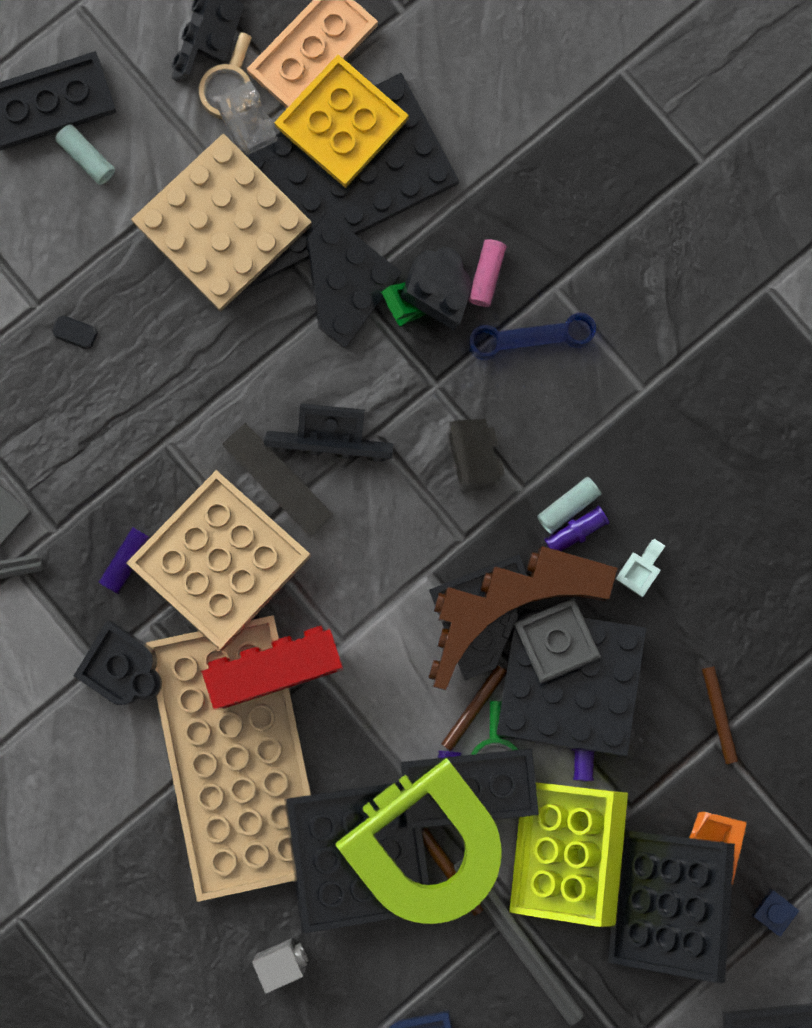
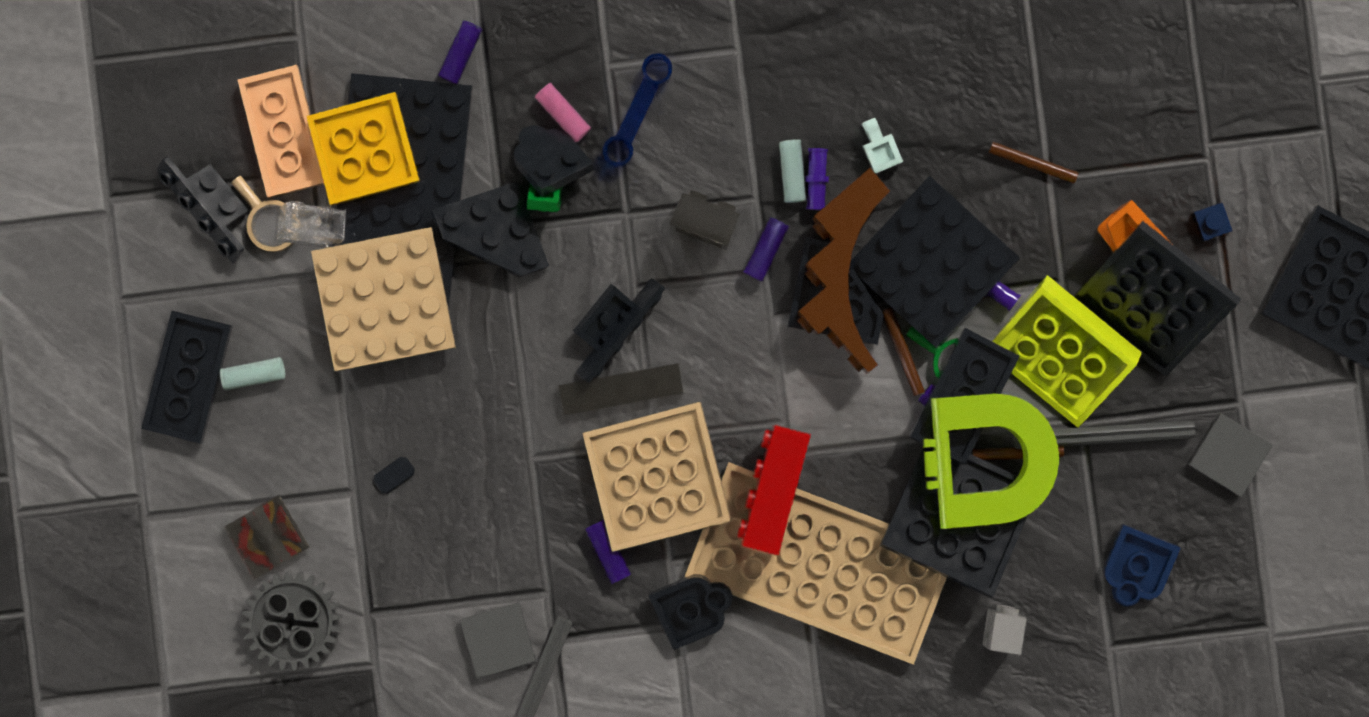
camera: 55 degrees left, 5 degrees up
(485, 529) = (768, 249): none -> dark purple piece
(488, 152) = (462, 52): none -> dark purple piece
(557, 641) = (895, 252): dark grey tile -> none

